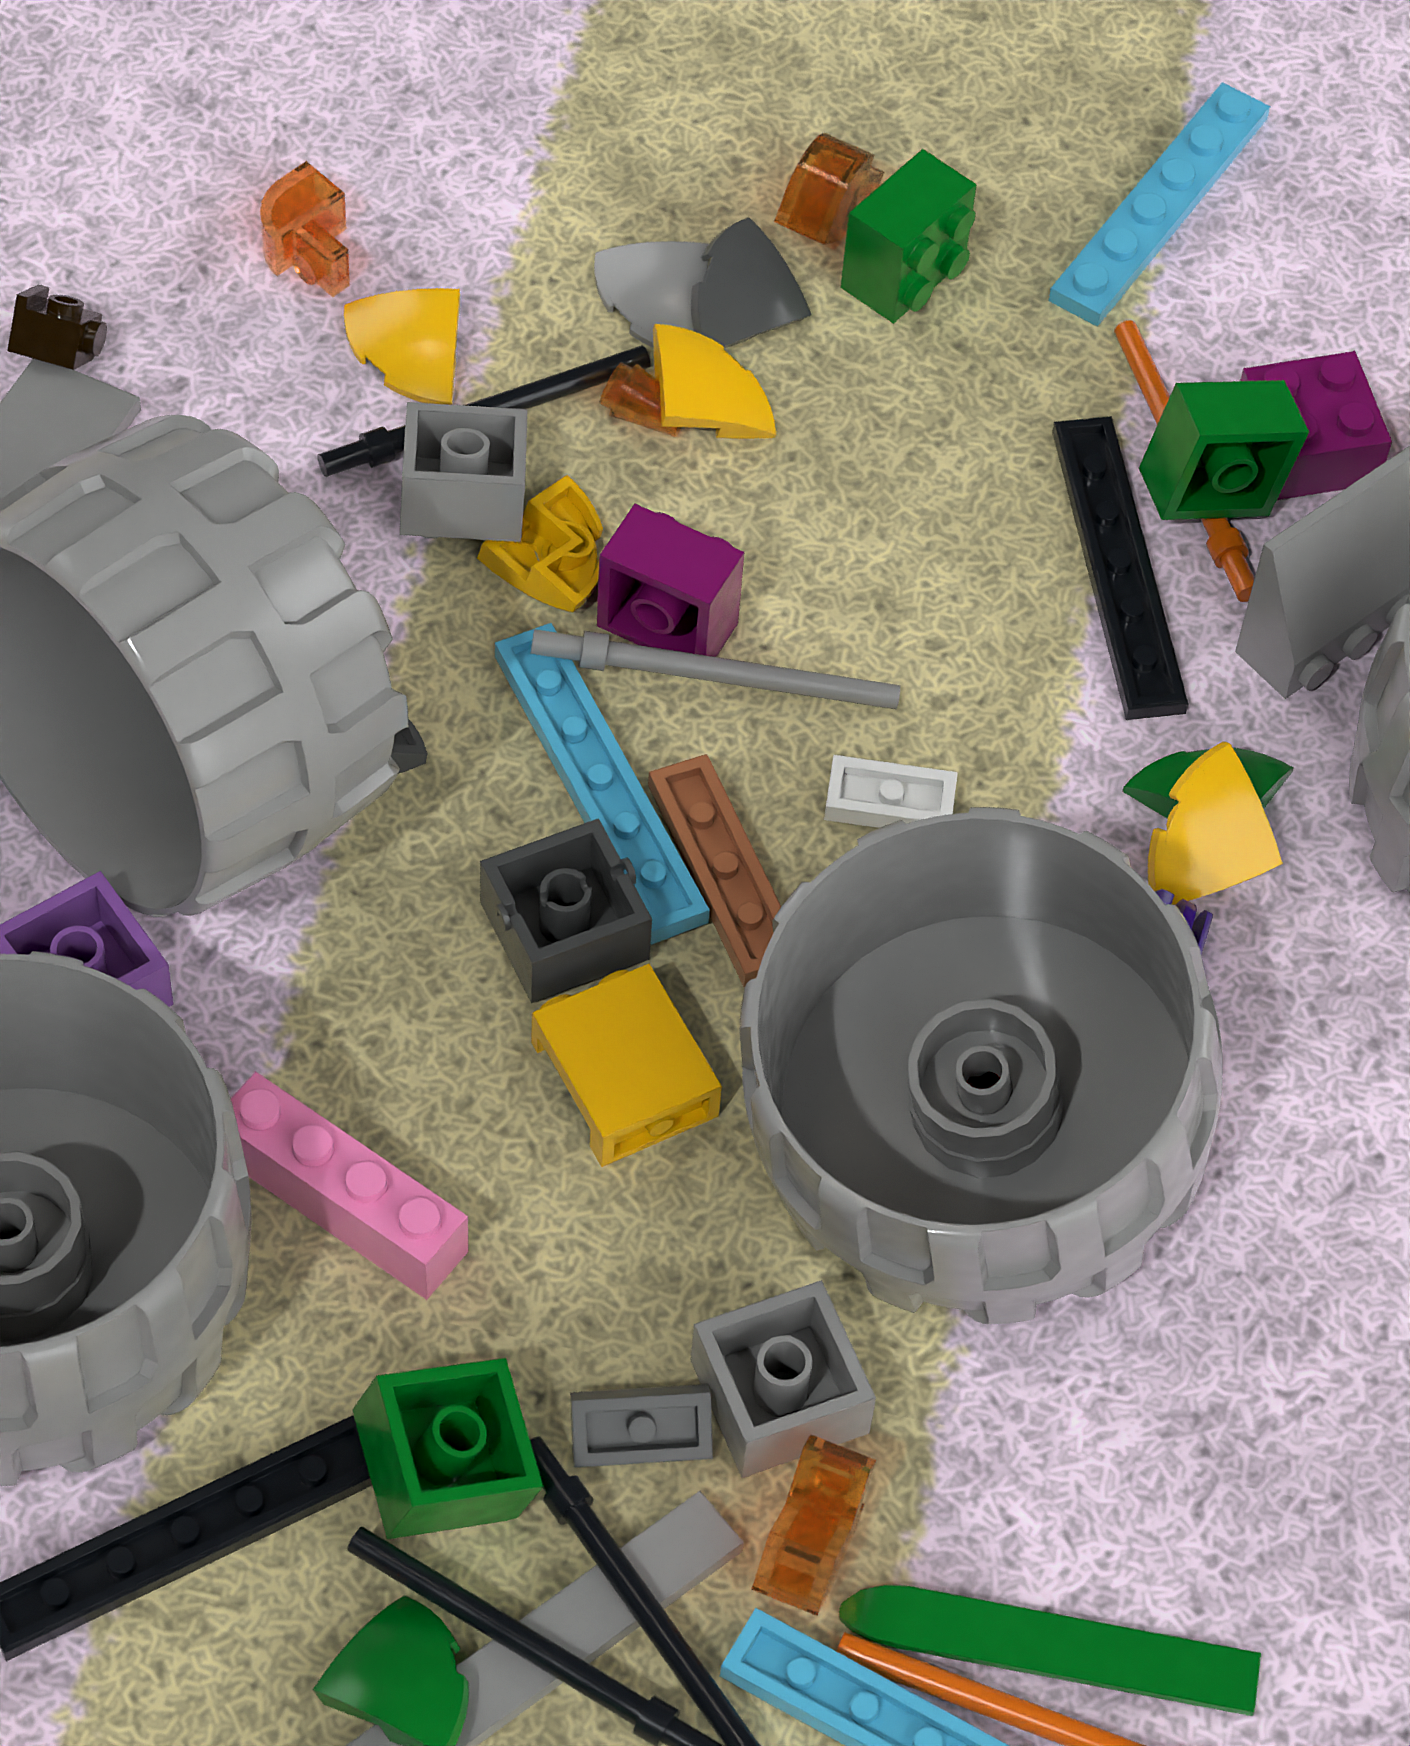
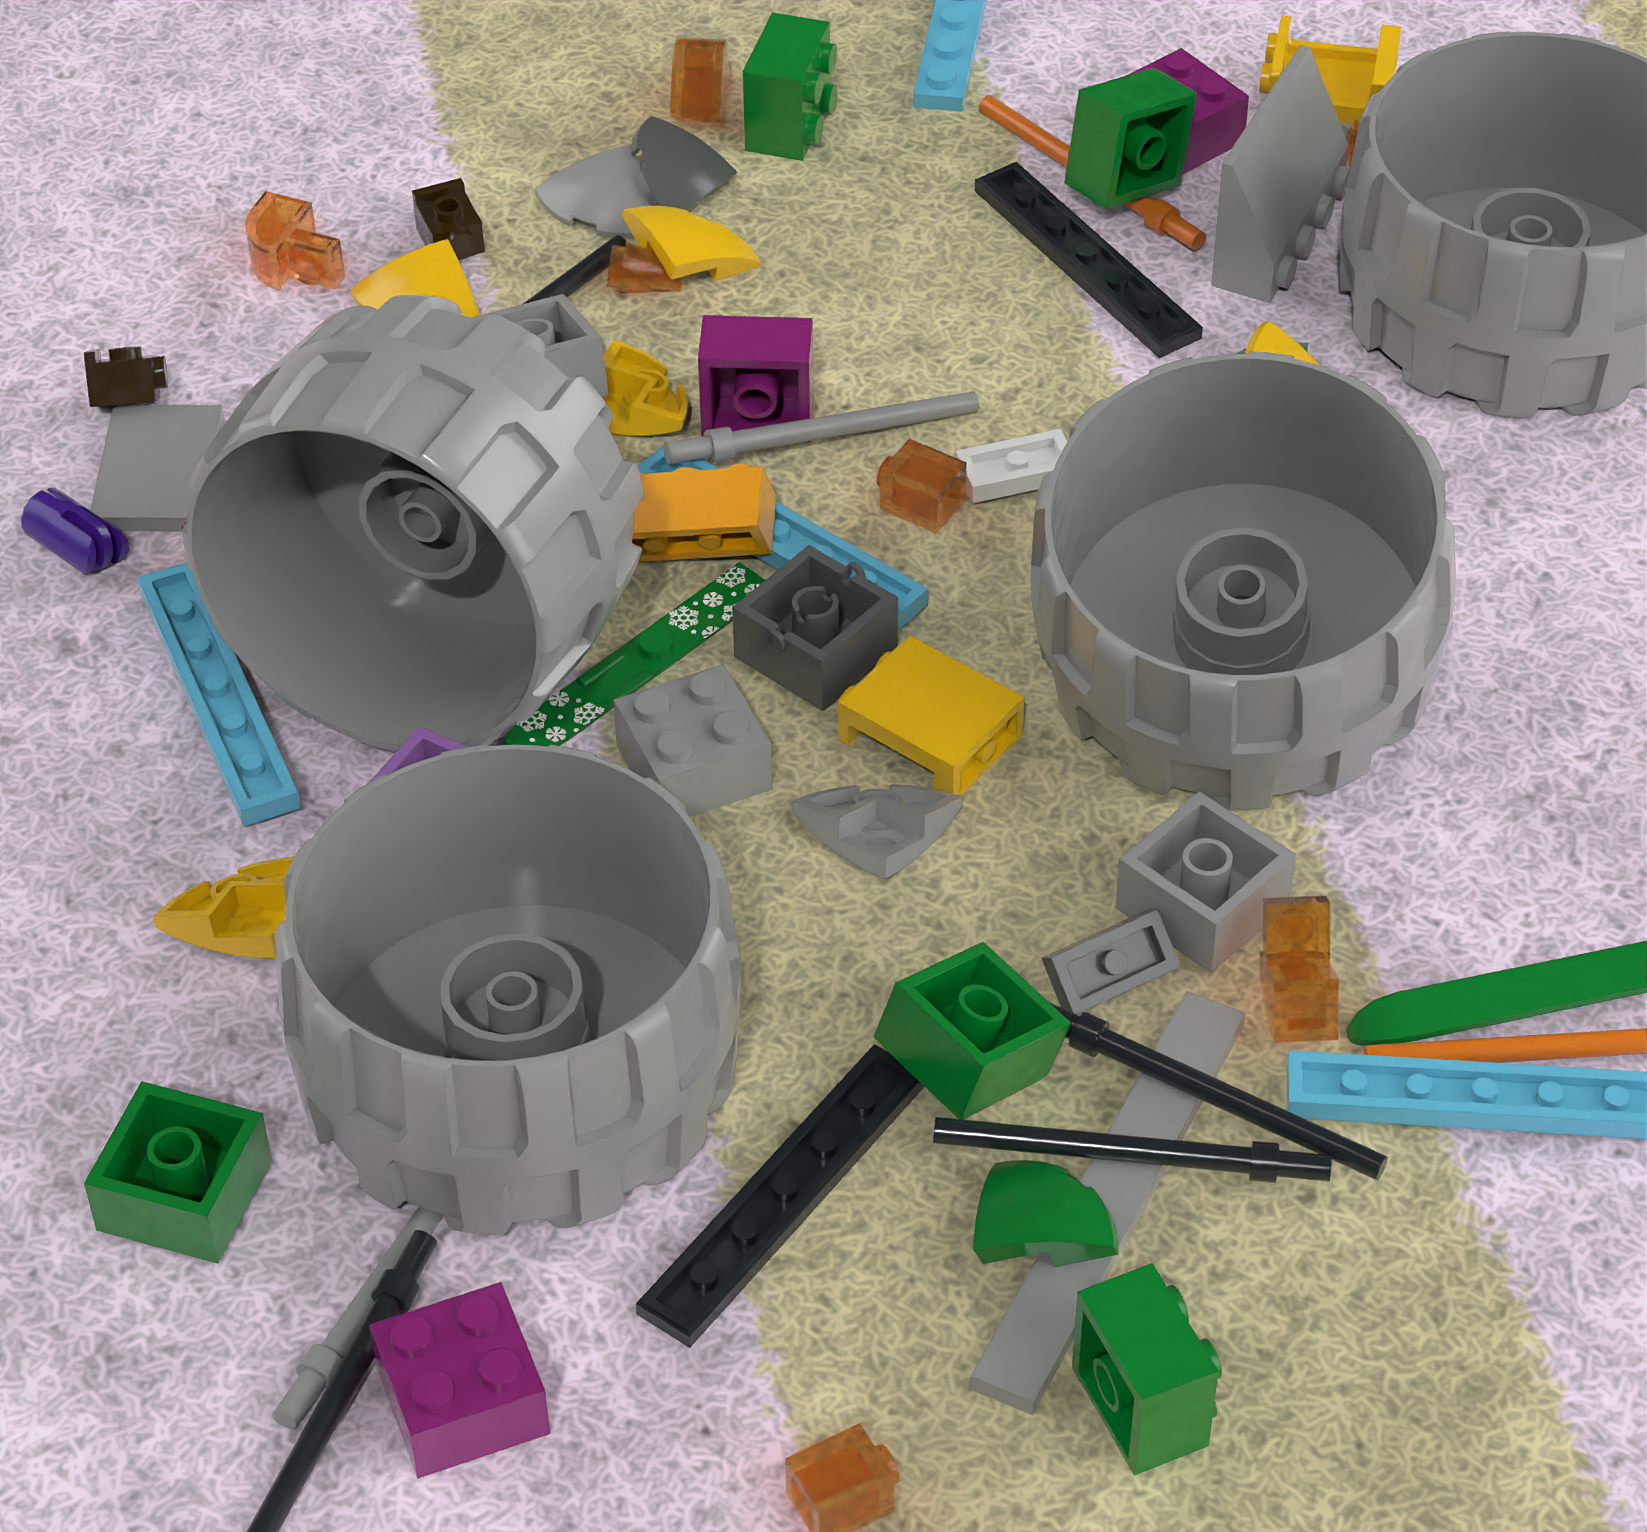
camera: 20 degrees left, 10 degrees down
(348, 1188) = (802, 890): bright pink brick -> none
(370, 994) = (695, 740): none -> light grey brick
(385, 866) = (636, 661): none -> green piece
(479, 262) = (447, 213): none -> dark brown brick
(506, 1161) = (875, 826): none -> light grey brick
(508, 722) = (705, 513): none -> light orange brick
(718, 859) = (952, 578): nougat plate -> none
(776, 781) = (922, 485): none -> clear orange brick

